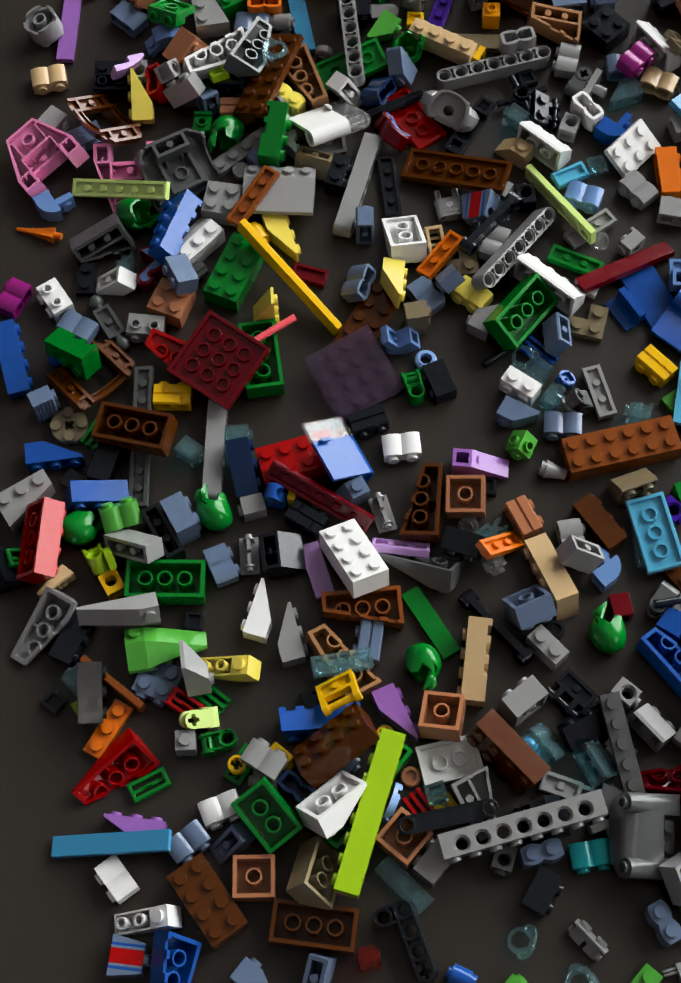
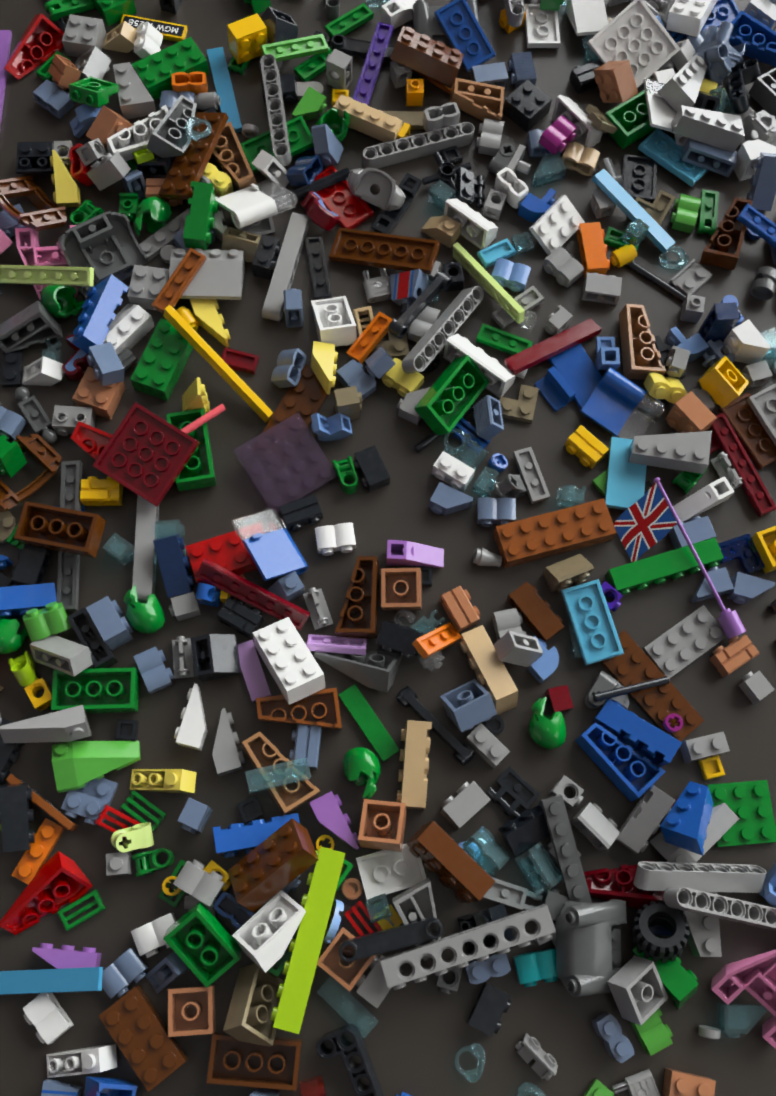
camera: 10 degrees left, 5 degrees up
(110, 558) = (36, 668): lime tile -> none
(123, 69) = (45, 151): lavender slope -> none
(160, 130) = (85, 212): none -> green piece
(195, 672) = (125, 789): light grey slope -> none
(260, 700) = (194, 816): none -> sand blue brick
(336, 688) = (272, 803): yellow plate -> none
(421, 354) = (356, 439): light blue piece -> none
(521, 445) = (455, 533): bright green brick -> none

